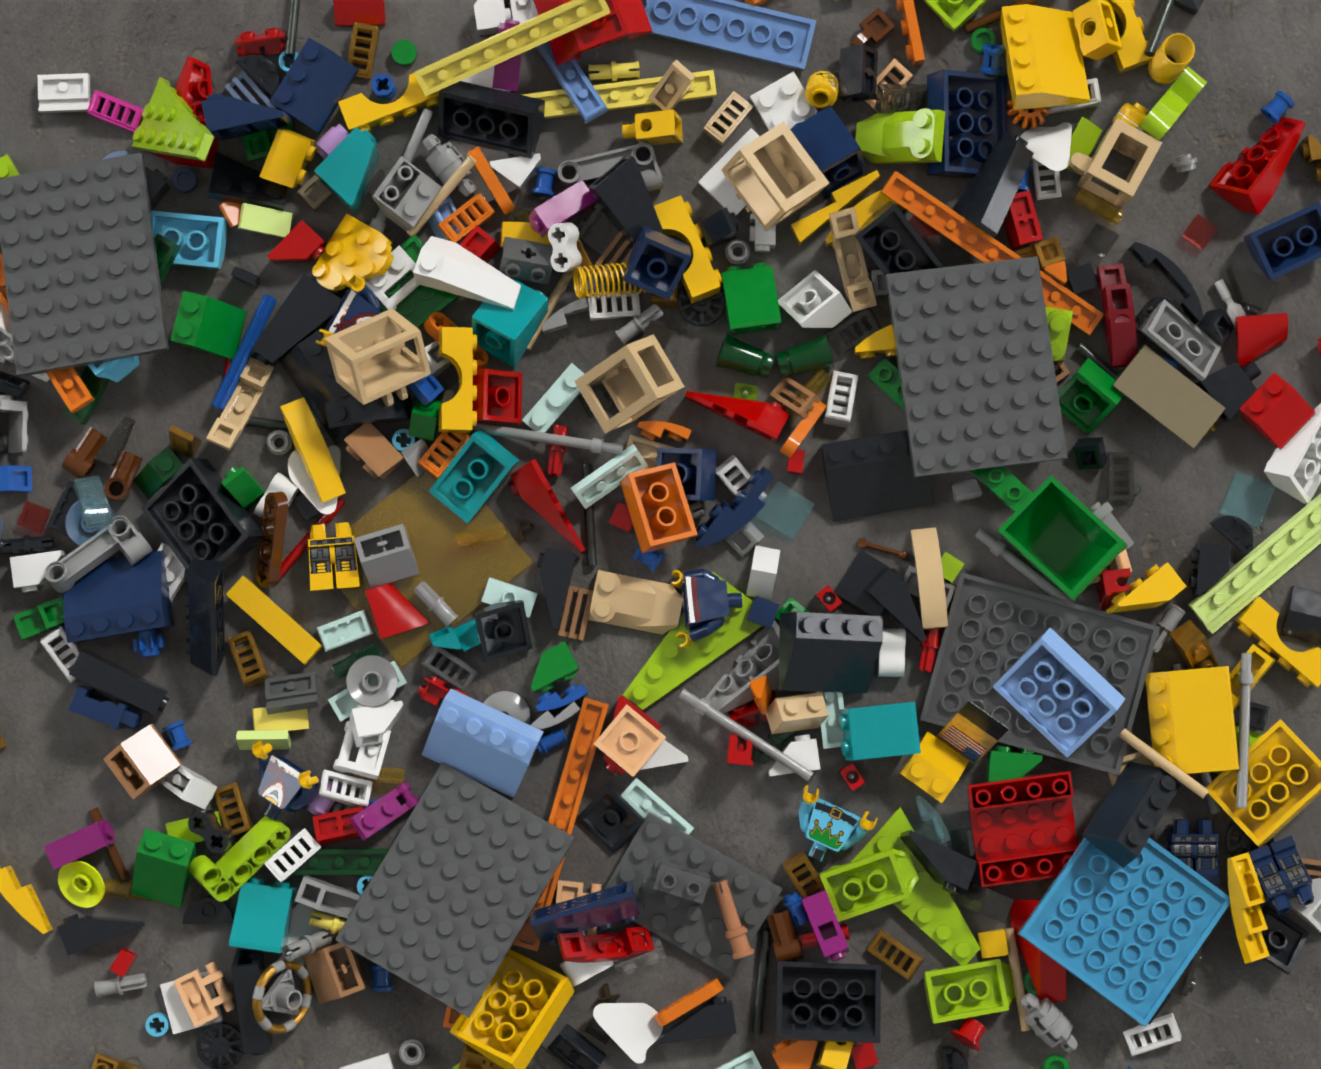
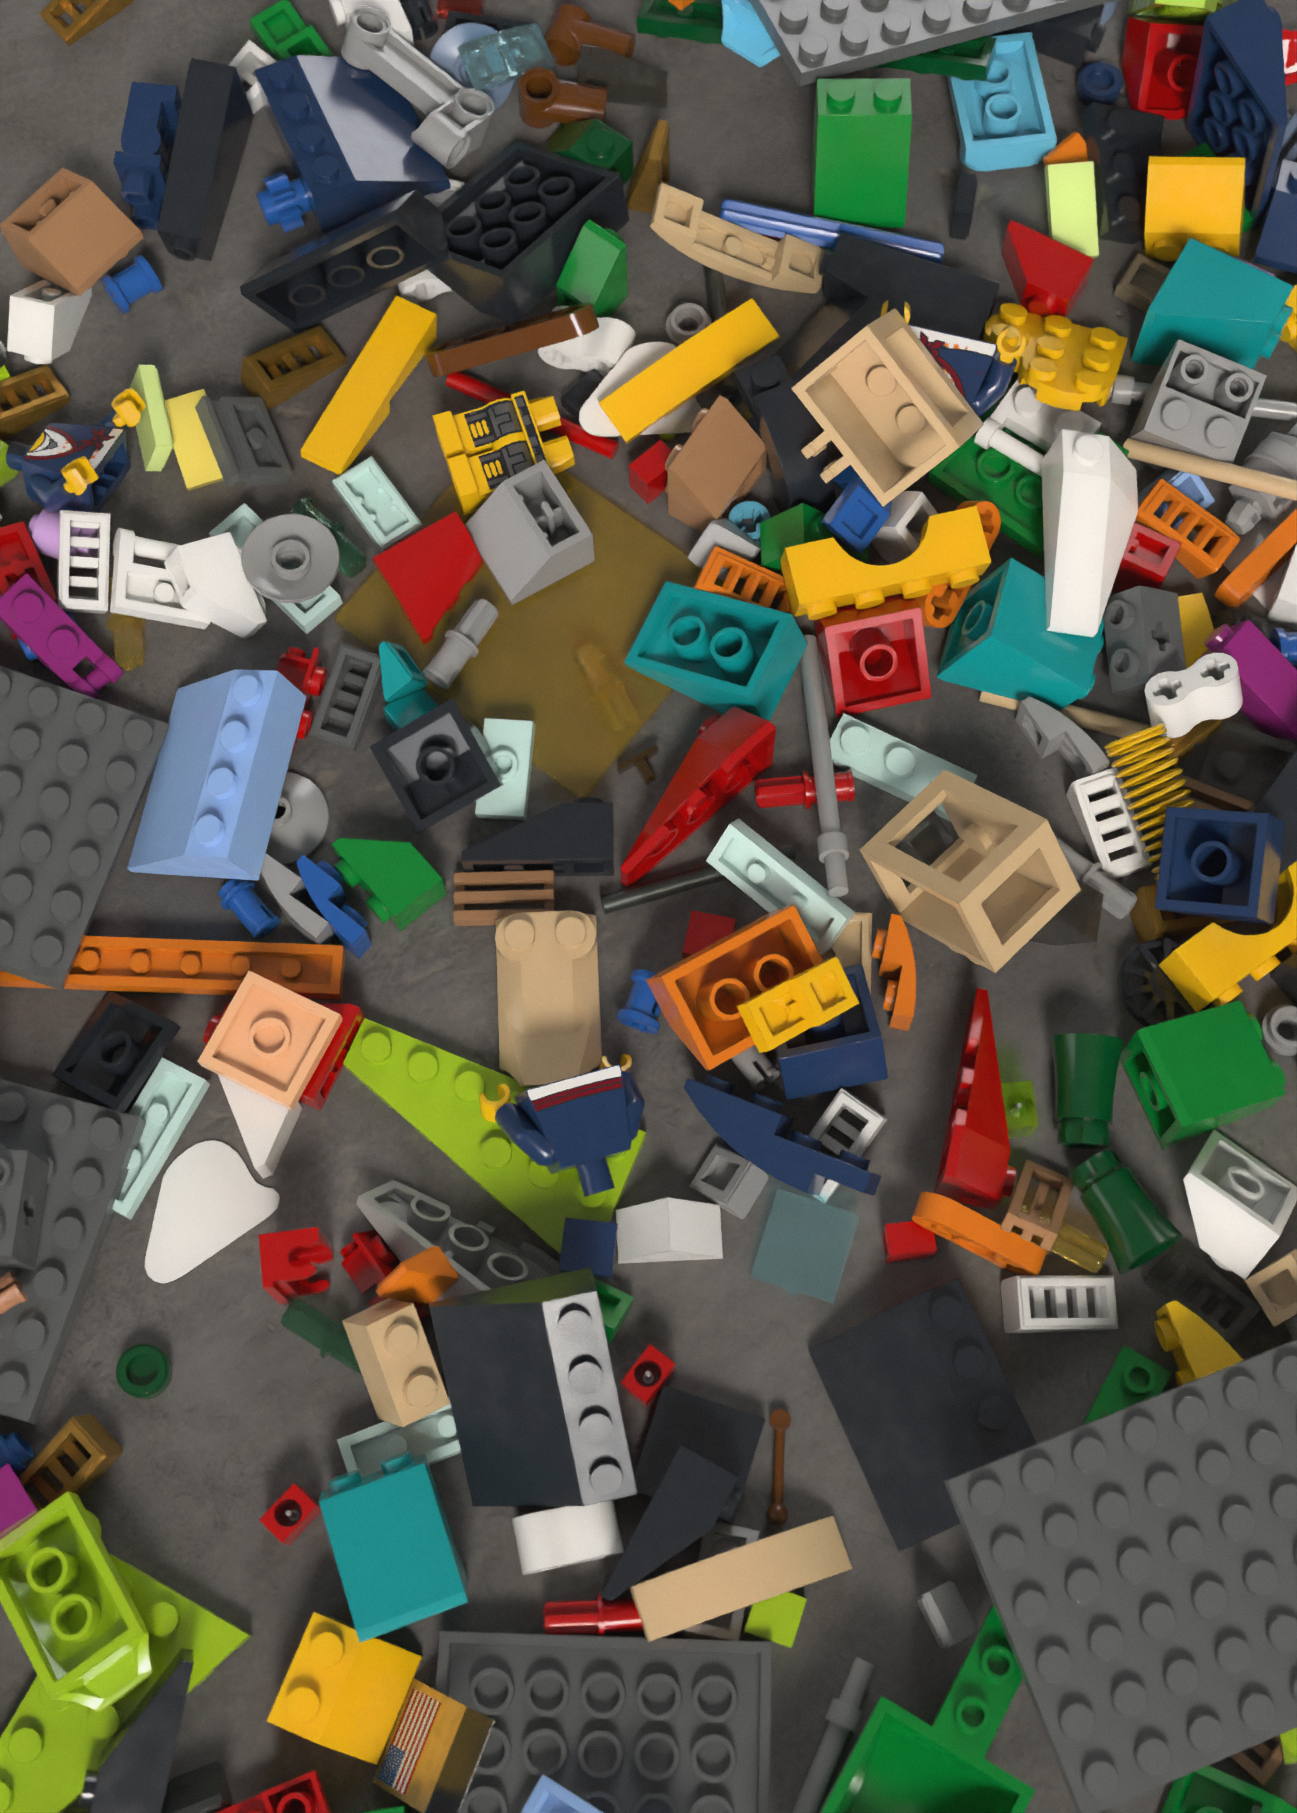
camera: 75 degrees right, 15 degrees down
(362, 482) = (648, 472): none -> red piece
(676, 484) = (798, 1004): none -> yellow slope
(696, 792) = (202, 1208): none -> white sticker
(703, 707) = (368, 1171): light grey bar -> none
(768, 833) = (144, 1371): none -> dark green tile
(802, 751) = (308, 1391): white slope -> none
(830, 825) = (181, 1492): torso -> none
(926, 813) = (245, 1700): clear light blue slope -> none

